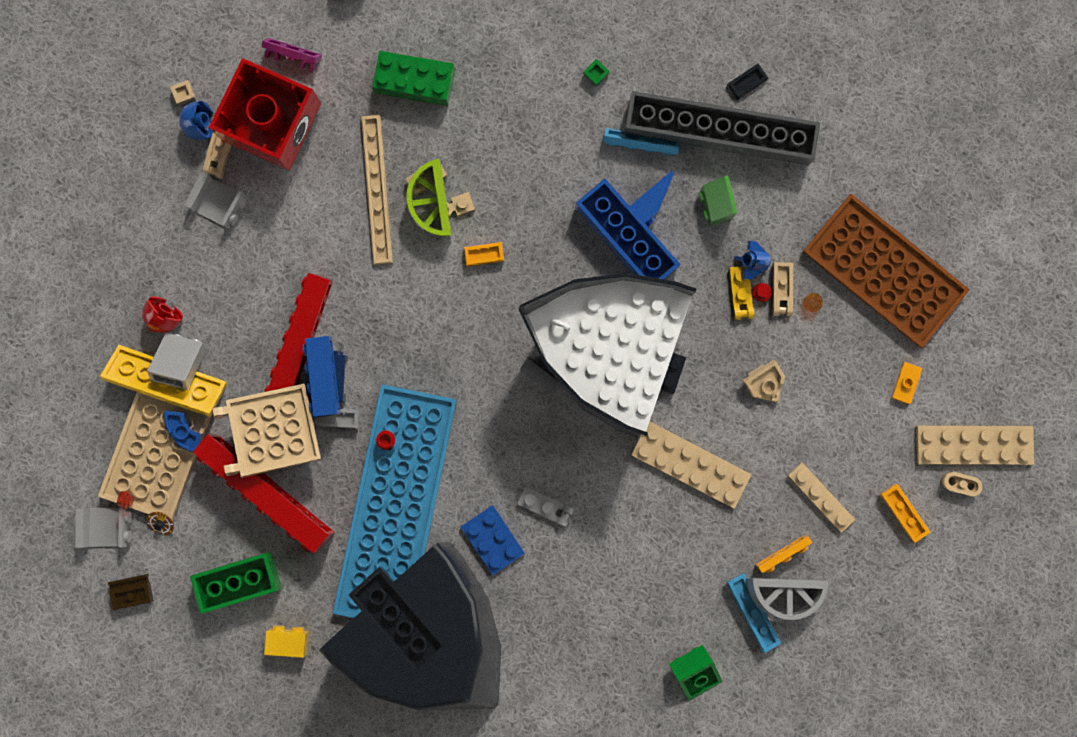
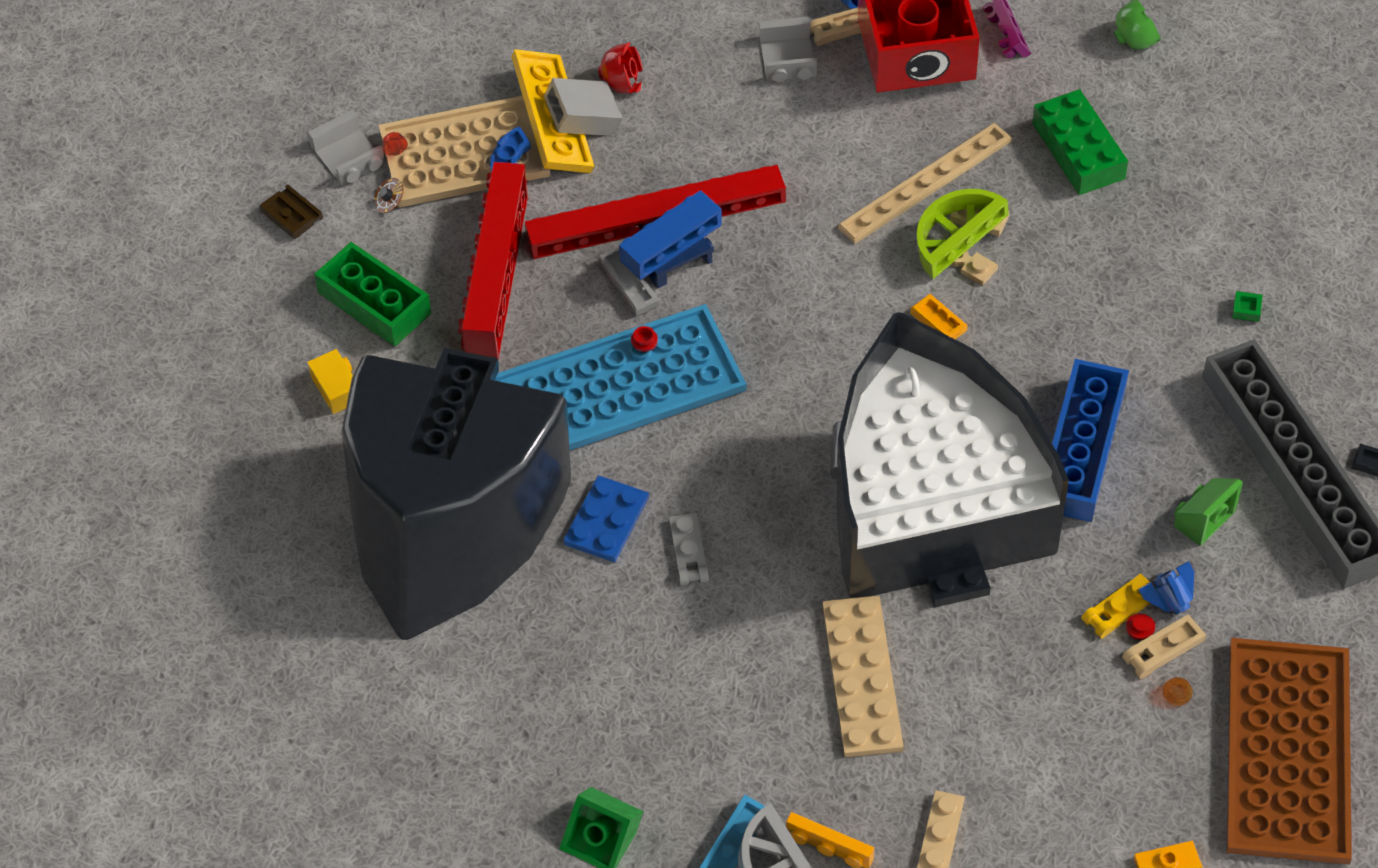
camera: 60 degrees right, 30 degrees down
(270, 431) = (570, 217): tan plate -> none
(618, 137) = (1191, 369): dark azure plate -> none
(649, 203) = (1144, 444): blue slope -> none
(765, 382) = (1031, 694): tan plate -> none

